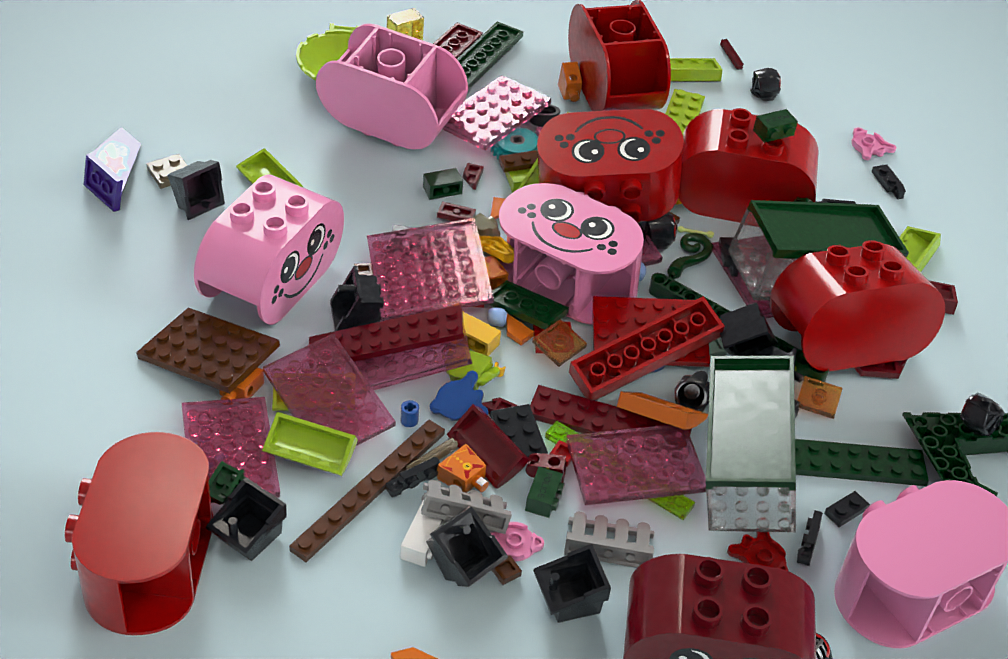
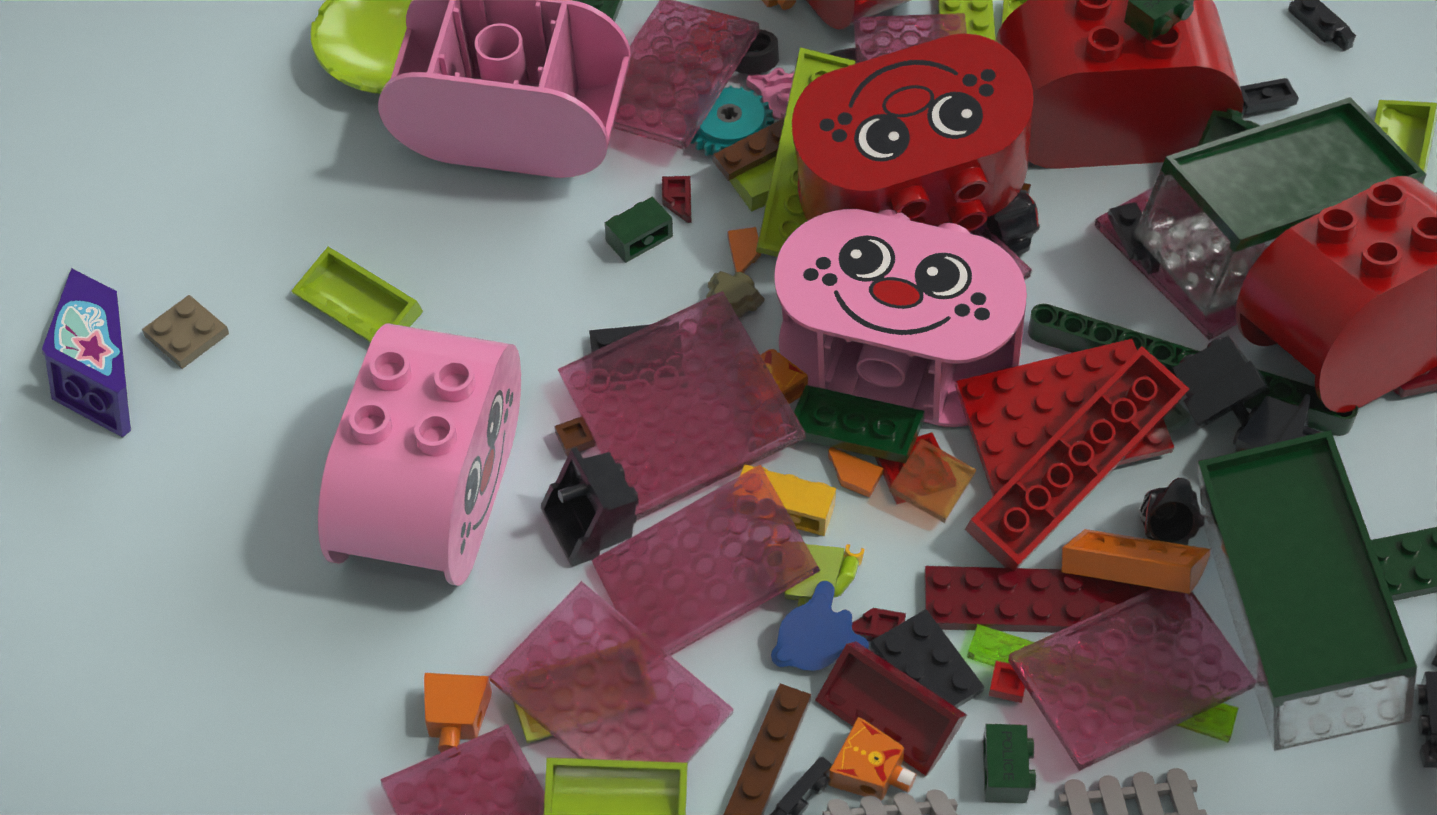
camera: 10 degrees left, 10 degrees up
(197, 187) = (249, 358): black piece -> none
(208, 349) = (384, 664): reddish brown plate -> none
(400, 333) = (678, 549): dark red plate -> none
(409, 413) = (747, 683): blue piece -> none
(439, 452) = (809, 749): dark tan axle -> none
(454, 212) = (680, 279): dark red plate -> none
(497, 317) = (816, 459): light blue piece -> none
(498, 248) = (776, 331): yellow wing -> none
(548, 461) = (991, 709): dark red leg -> none
(678, 265) = (1060, 276): dark green plant -> none
(709, 234) = (1085, 201): yellowish green hinge -> none
(759, 551) = (1367, 771): red tile -> none
(819, 397) = (1363, 456): clear orange plate -> none

